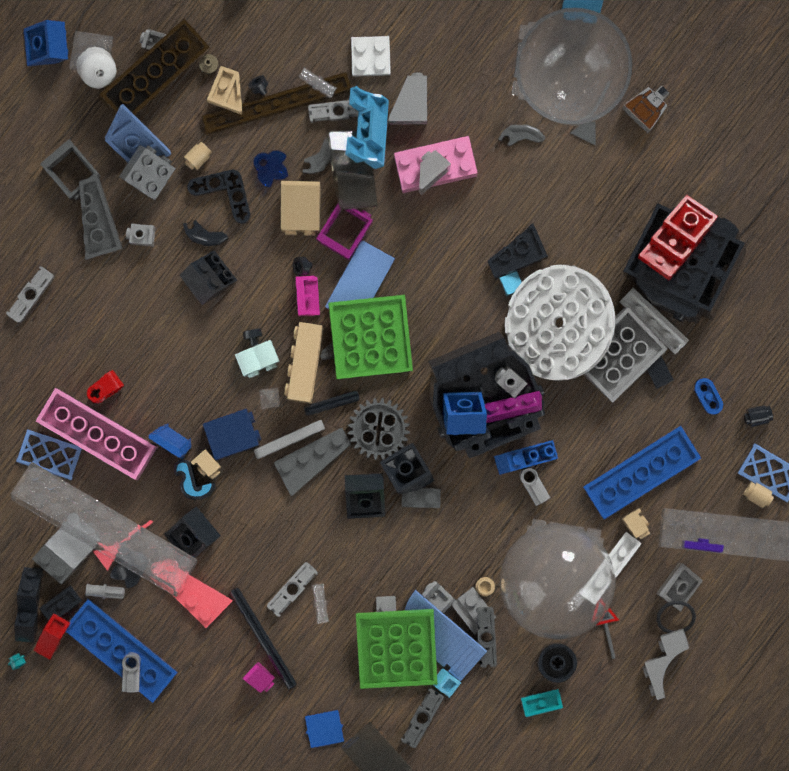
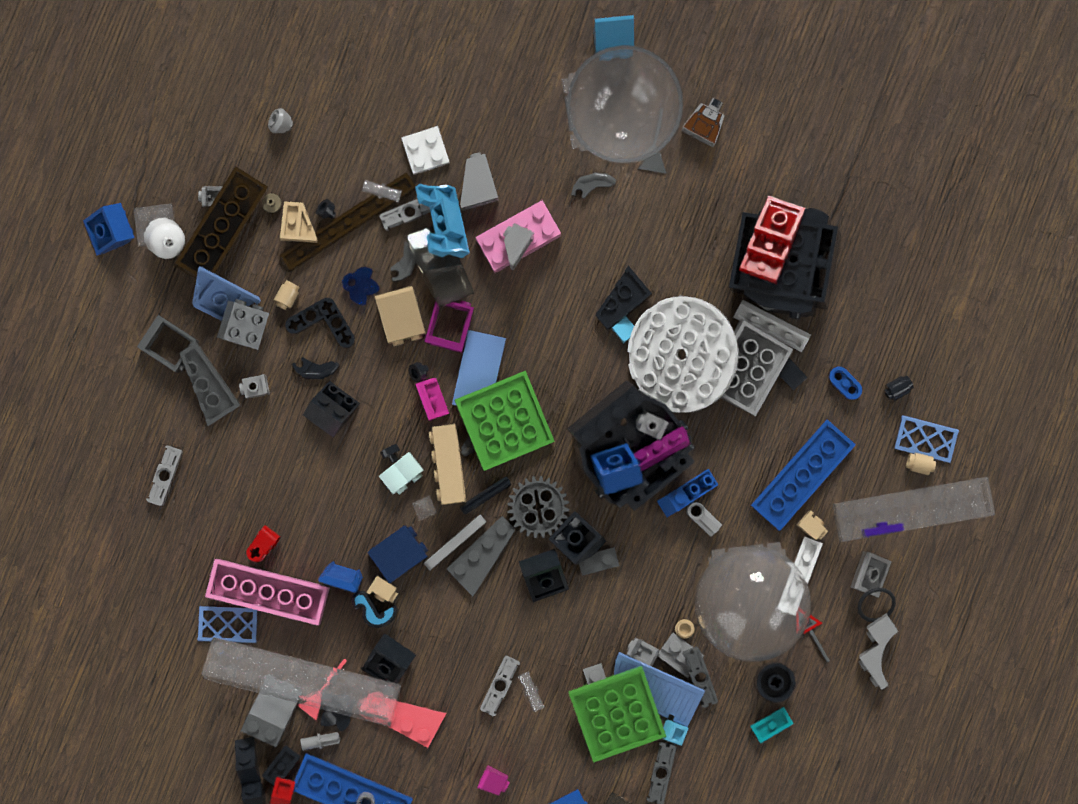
camera: 15 degrees left, 0 degrees up
(263, 638) = (486, 741): black axle -> none

